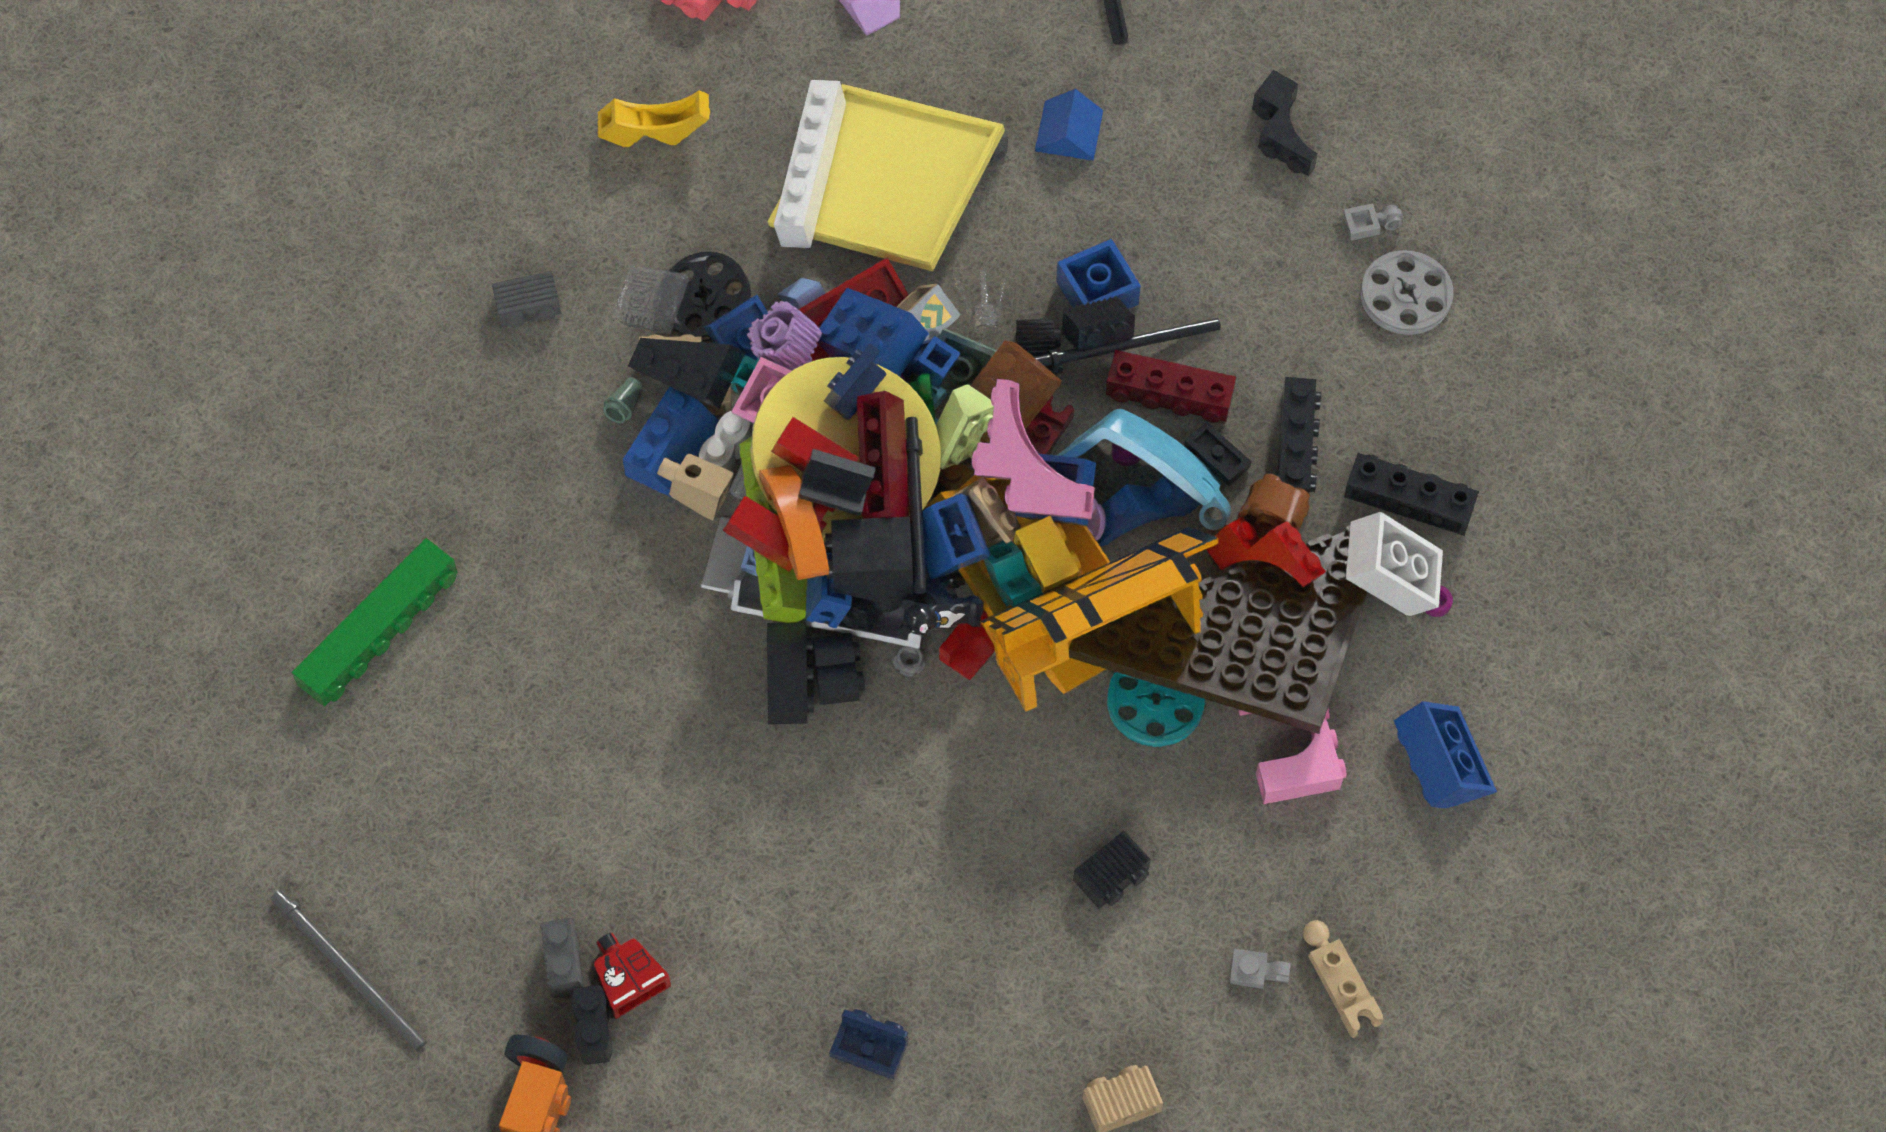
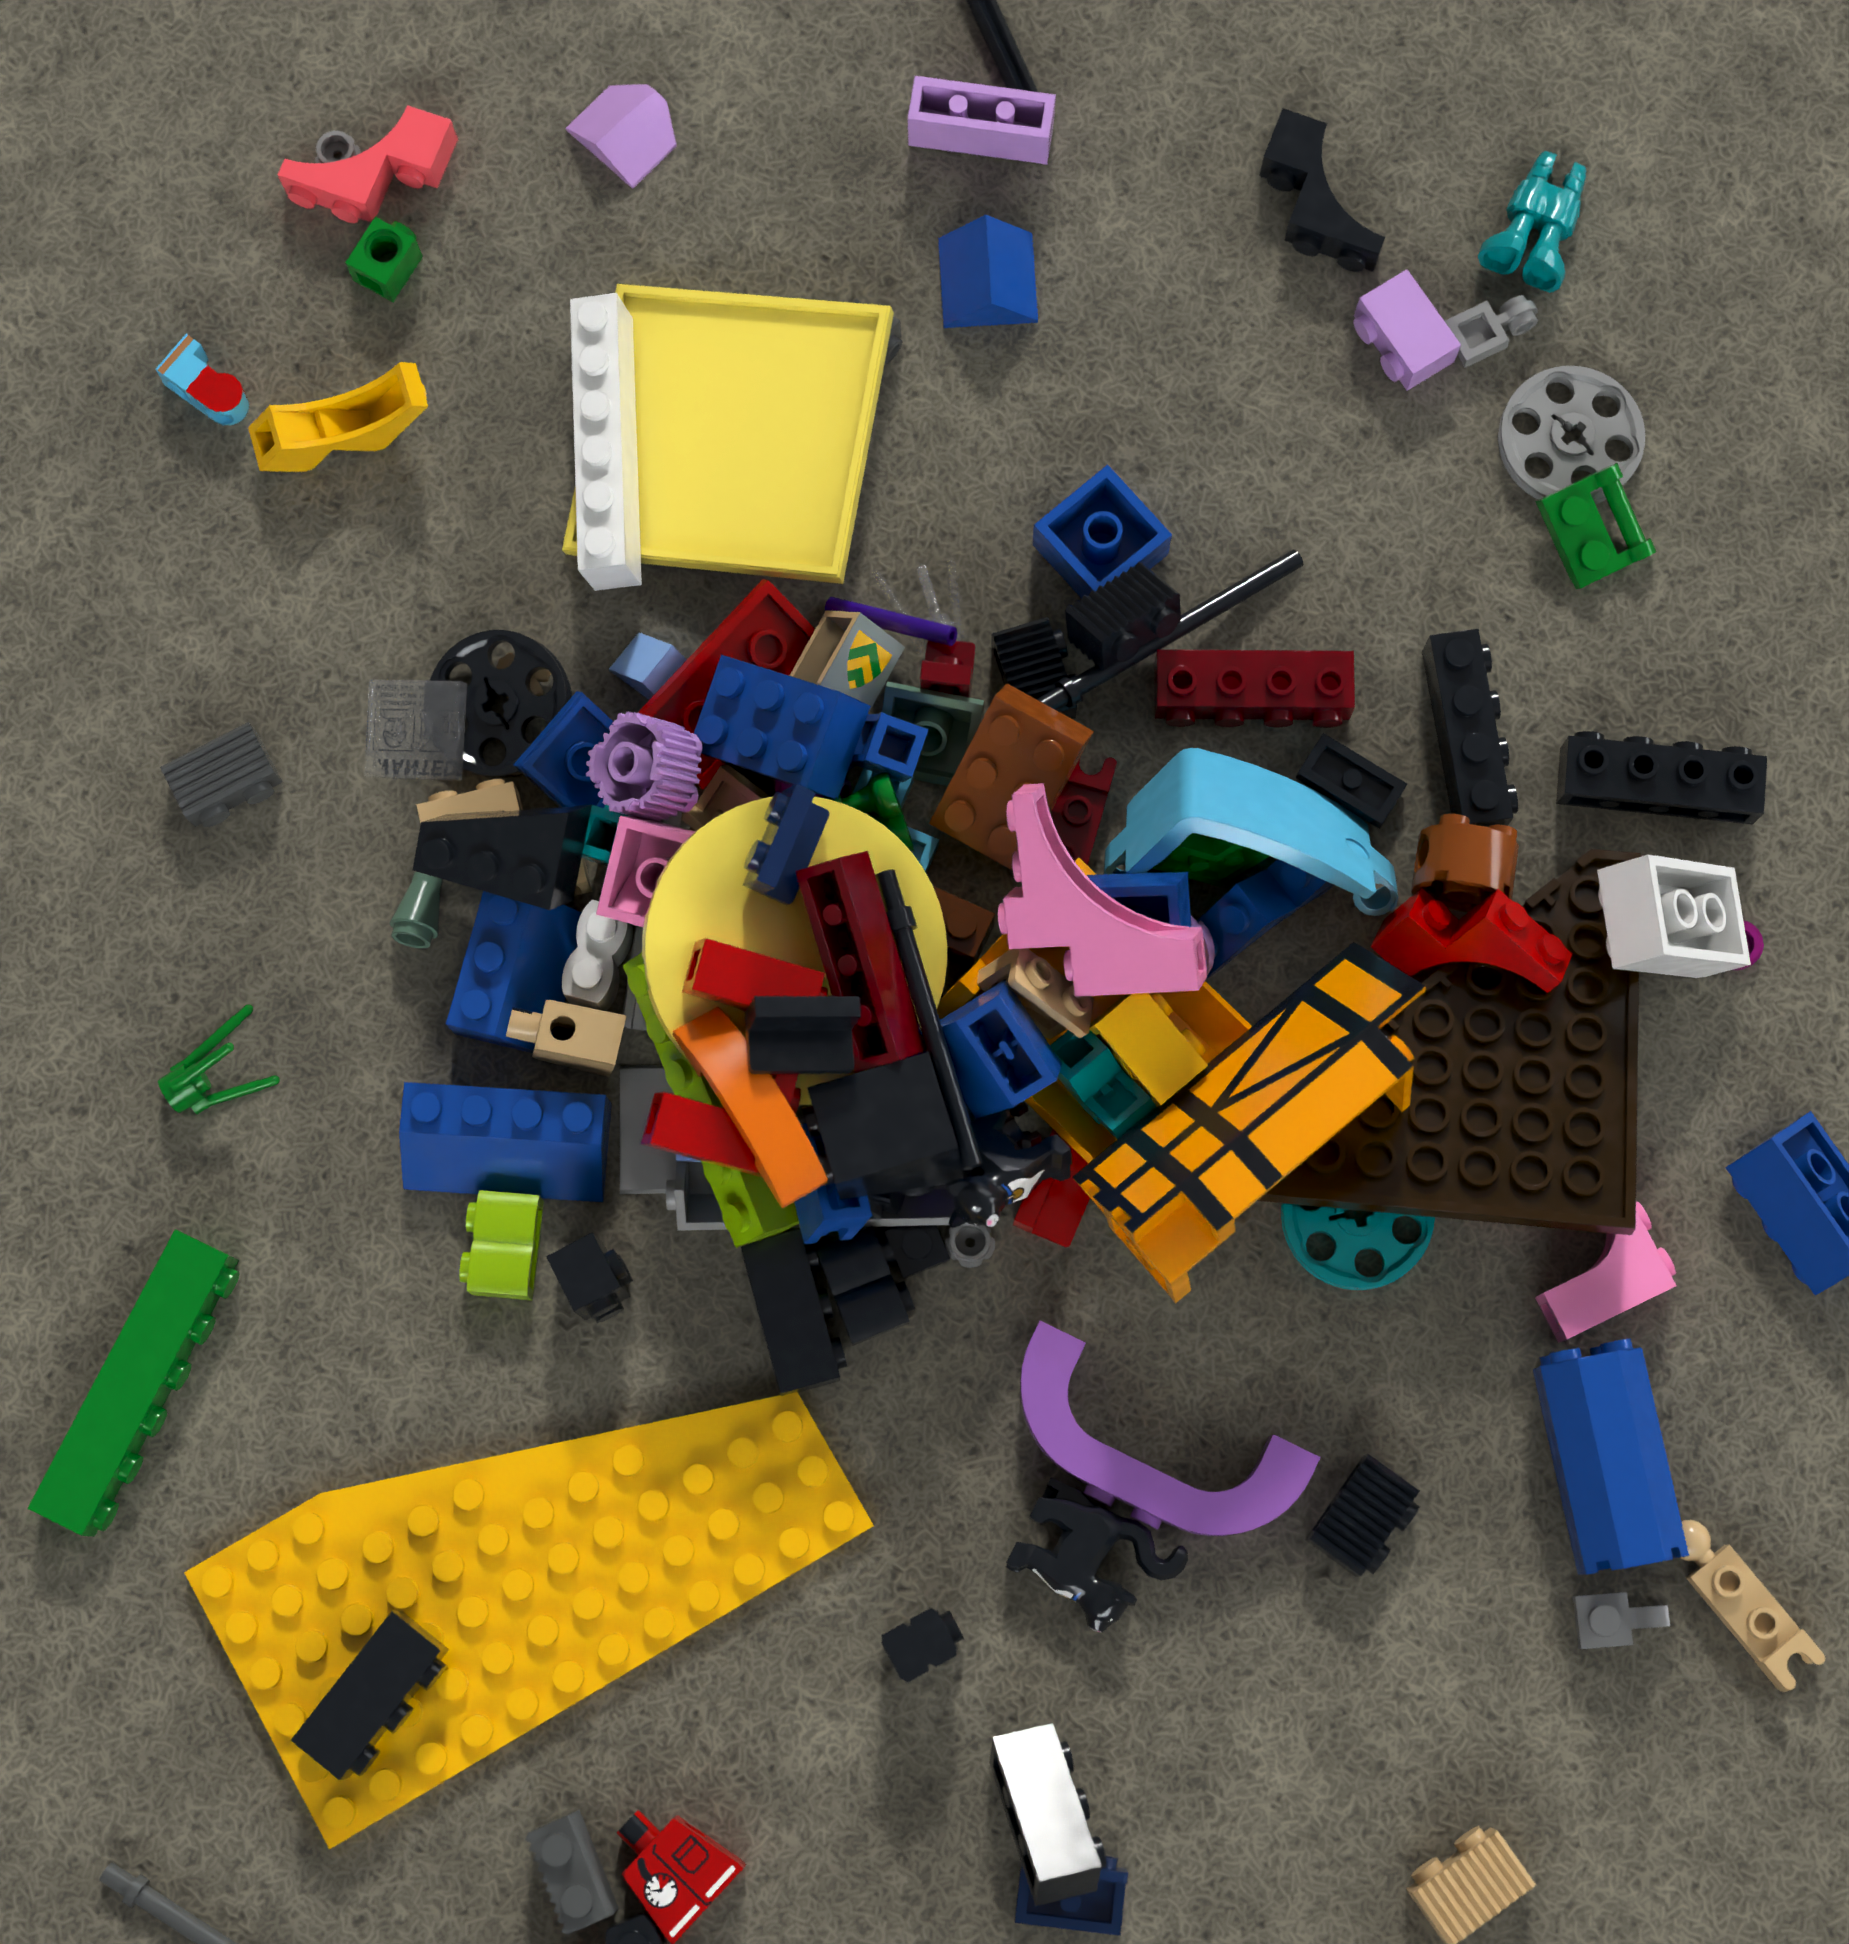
camera: 10 degrees left, 15 degrees up
(456, 464) = (188, 1082): none -> green plant
(469, 823) = (372, 1696): none -> black brick
(549, 795) = (532, 1572): none -> yellow wing
(573, 82) = (213, 393): none -> leg
(621, 596) = (503, 1245): none -> lime brick
(639, 537) = (504, 1141): none -> blue slope
(671, 620) = (591, 1277): none -> black brick
(695, 39) = (384, 277): none -> green brick
(816, 872) = (926, 1641): none -> black brick
(866, 985) = (1046, 1814): none -> brick
(876, 657) = (917, 1248): none -> black plate
(929, 849) = (1082, 1547): none -> black animal
(962, 424) = (960, 848): yellowish green slope -> none
(969, 304) = (898, 622): none -> dark purple piece
(980, 824) = (1155, 1496): none -> medium lavender arch
(984, 330) = (948, 668): none -> dark red slope
(1087, 39) = (981, 119): none -> lavender brick
(1117, 472) = (1210, 859): none -> green plate
(1274, 866) = (1609, 1458): none -> blue brick
(1318, 210) = (1405, 330): none -> lavender brick
(1397, 344) = (1580, 531): none -> green plate
(1415, 158) = (1541, 207): none -> teal piece

